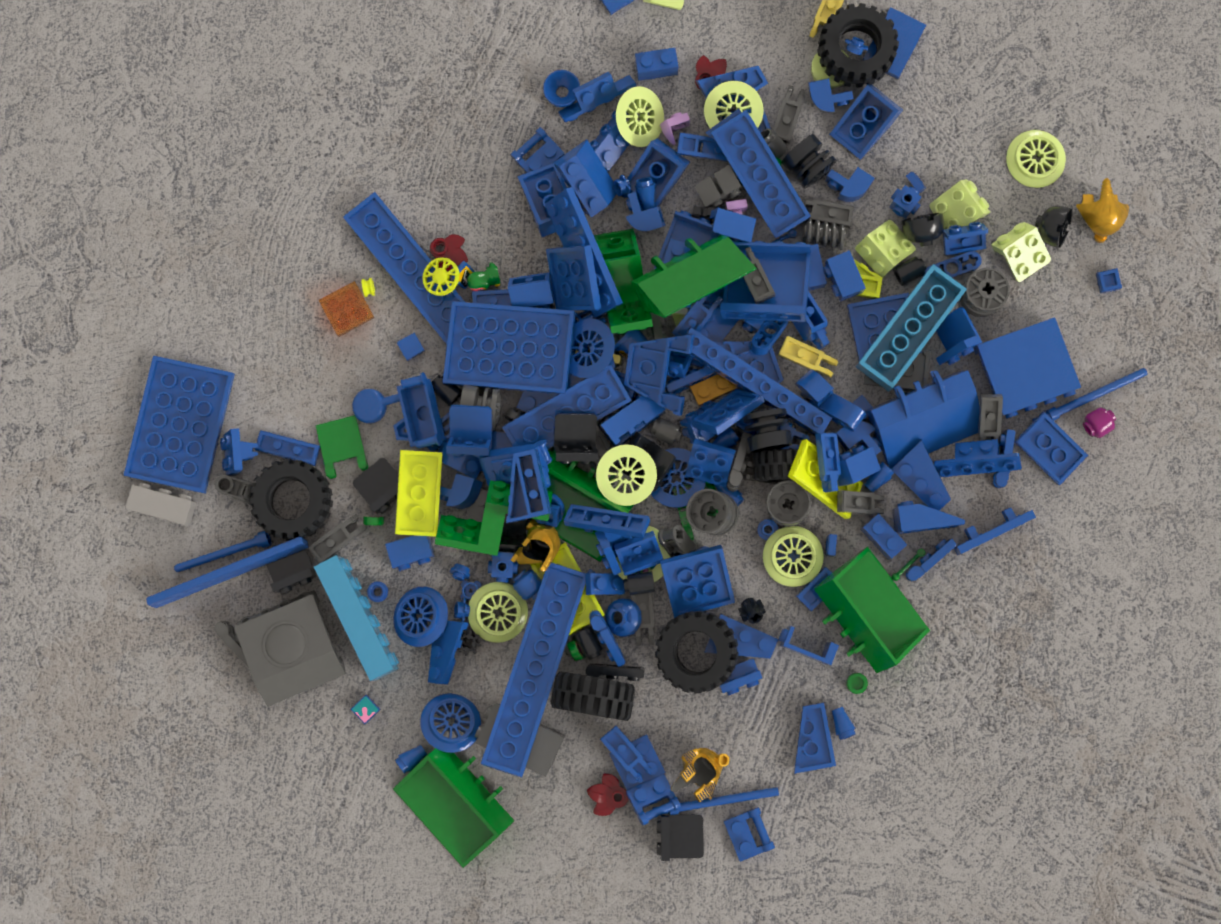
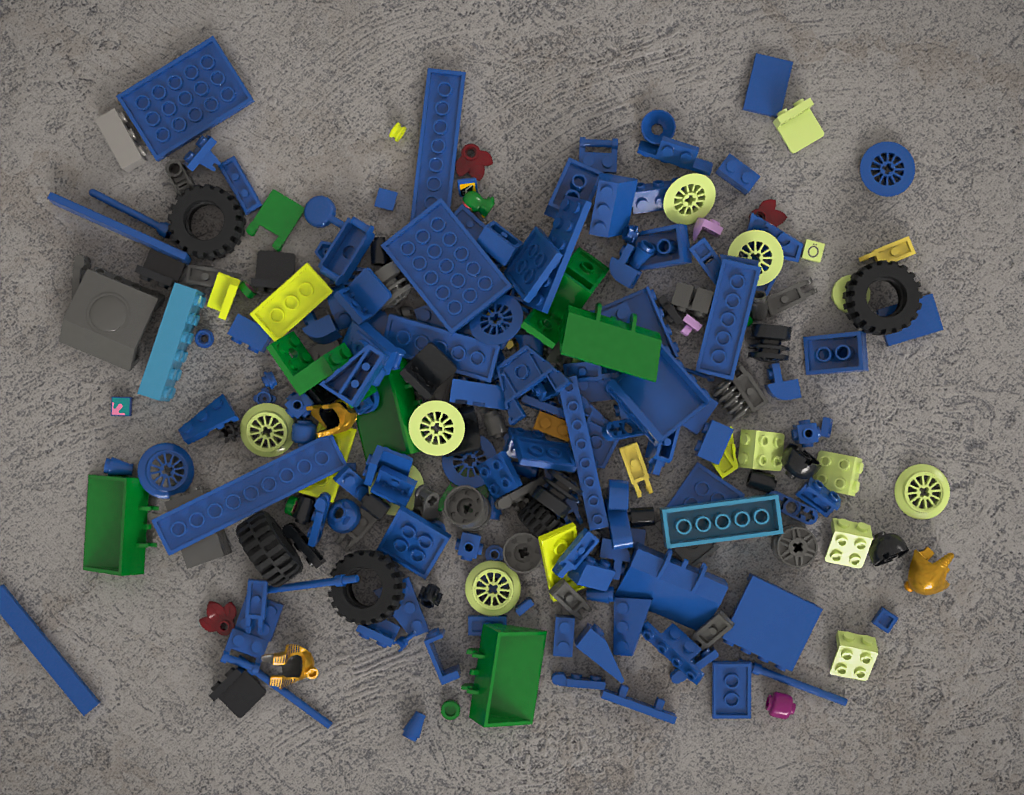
camera: 40 degrees right, 5 degrees up
(346, 309) = (369, 132): clear orange plate -> none
(359, 541) = (223, 294): none -> neon yellow panel
(437, 625) = (221, 398): blue piece -> none
(441, 276) = (450, 173): neon yellow wheel -> none
(461, 610) = (245, 405): blue plate -> none
(607, 521) = (392, 445): blue hinge -> none
(670, 665) = (338, 581): none -> blue bar
(732, 224) = (674, 334): blue panel -> none
(735, 546) = (469, 538): none -> blue brick
(742, 837) = (278, 730): blue plate -> none
(757, 281) = (651, 390): dark grey hinge -> none
(767, 667) = (403, 641): none -> blue hand
(770, 64) = (812, 251): none -> yellowish green tile
(814, 740) = (385, 718): blue wing -> none
(823, 98) = (824, 309): blue brick -> none
(849, 386) = (641, 516): none -> black brick
(856, 45) = (878, 298): blue plate -> none
(920, 553) = (578, 669): green hinge -> none
(957, 336) = (746, 557): blue bracket -> none
(1115, 329) = (854, 655): none -> yellowish green bracket

